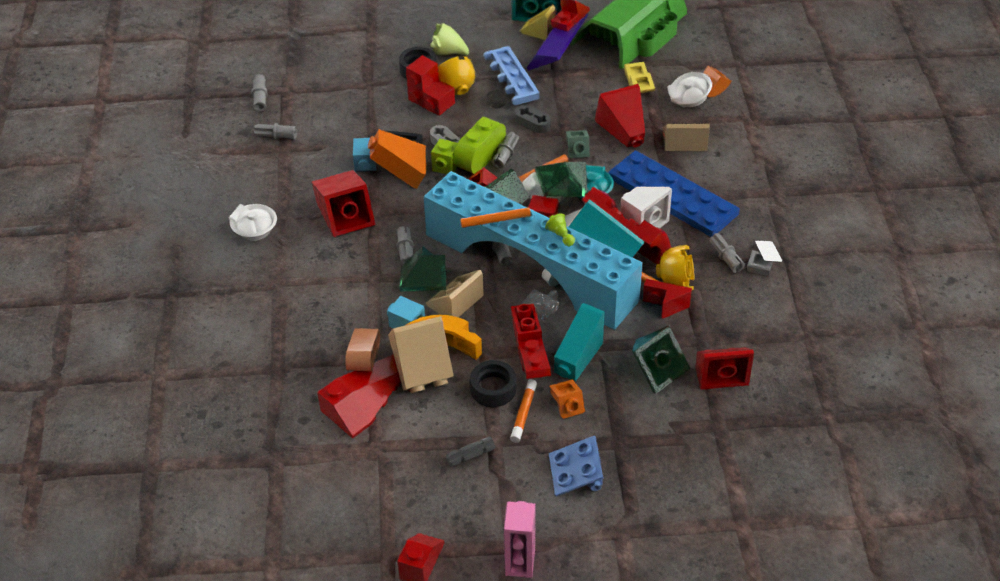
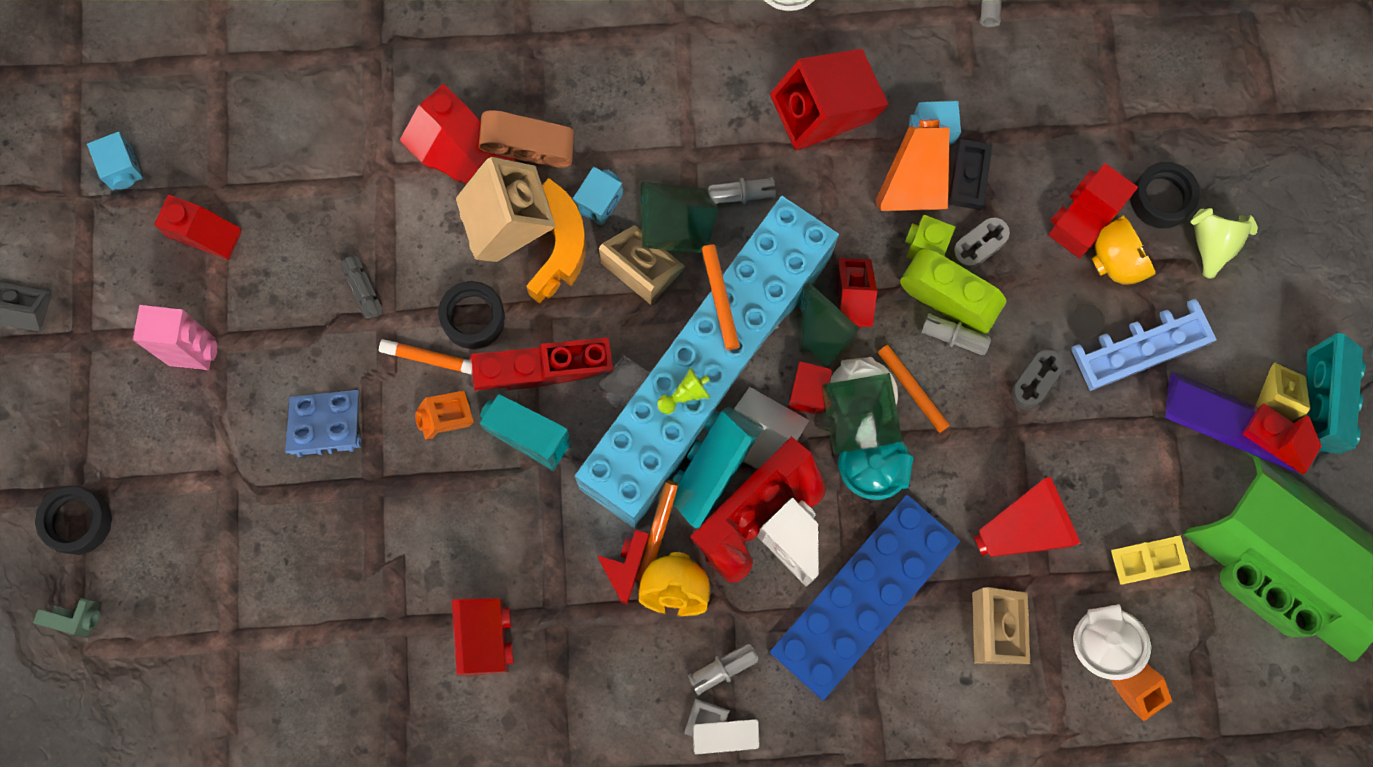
camera: 85 degrees right, 30 degrees up
(578, 144) = (977, 447): sand green bracket -> none
(660, 358) = (499, 542): clear green slope -> none

